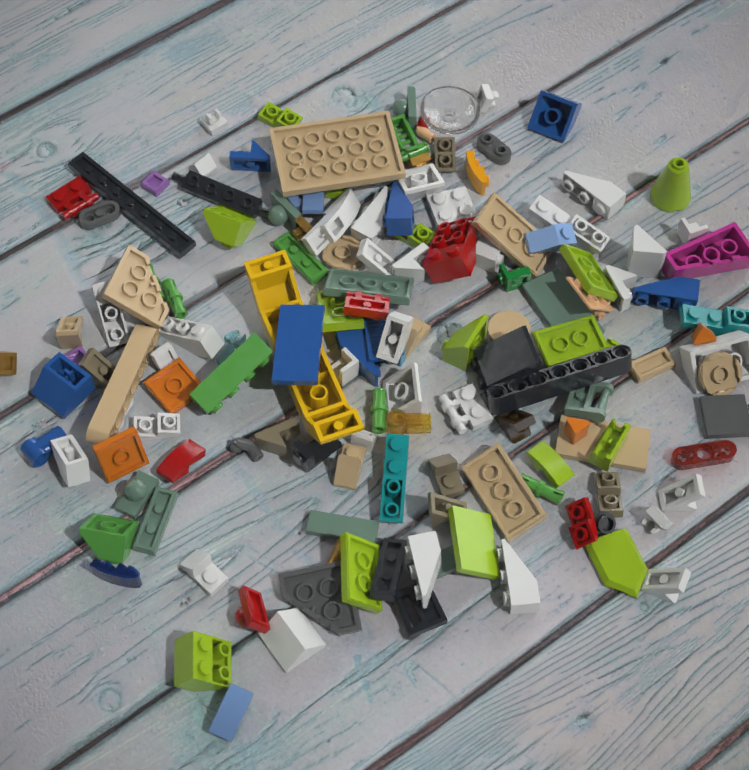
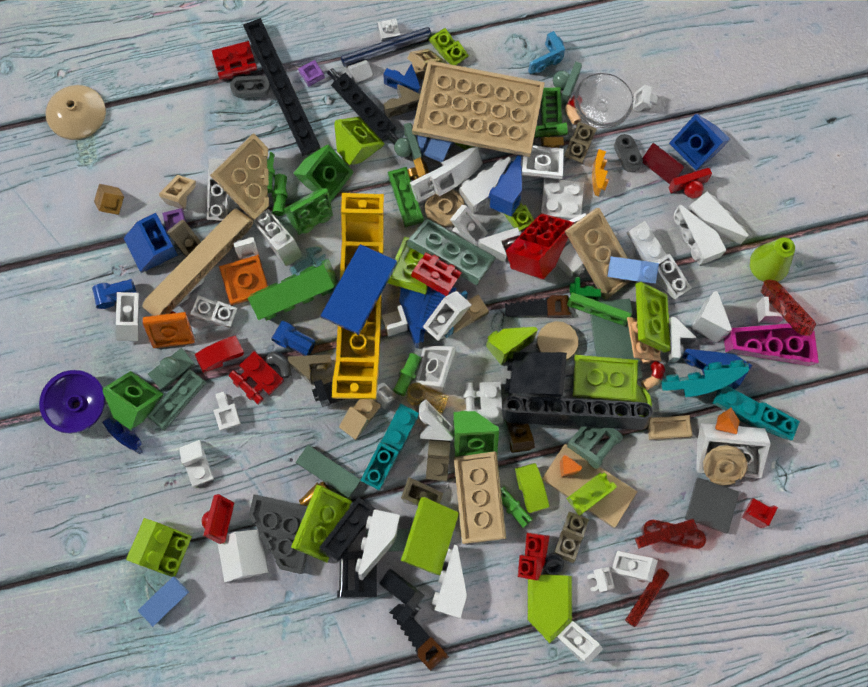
camera: 20 degrees right, 15 degrees up
(47, 546) = (63, 392): none -> dark purple dish
(210, 263) = (324, 170): none -> bright green slope
(214, 298) = (310, 211): none -> bright green slope
(214, 513) = (226, 414): none -> white plate
(218, 137) = (386, 46): none -> dark blue axle
(229, 464) = (261, 373): none -> red plate
(243, 420) = (288, 336): none -> blue piece
(260, 176) = (407, 102): none -> dark tan slope
(261, 137) = (420, 59): none -> tan slope
(384, 90) = (556, 49): none -> dark azure bracket
(431, 444) = (435, 426): none -> white slope
(471, 434) = (474, 434): none -> bright green slope
(471, 606) = (404, 592): none -> black bracket
(478, 307) = (539, 308): none -> black piece
(507, 643) = (419, 639): none -> piece
(530, 145) = (662, 163): none -> dark red slope
(534, 284) = (598, 309): none -> bright green tile
(564, 152) = (691, 183): none -> red tile
(602, 169) = (721, 220): none -> white slope
(616, 320) = (657, 376): none -> arm
(671, 301) = (715, 378): none -> teal slope
(696, 451) = (666, 533): none -> clear red beam
(707, 218) = (788, 307): none -> clear red beam
(707, 519) = (647, 597): none -> clear red axle

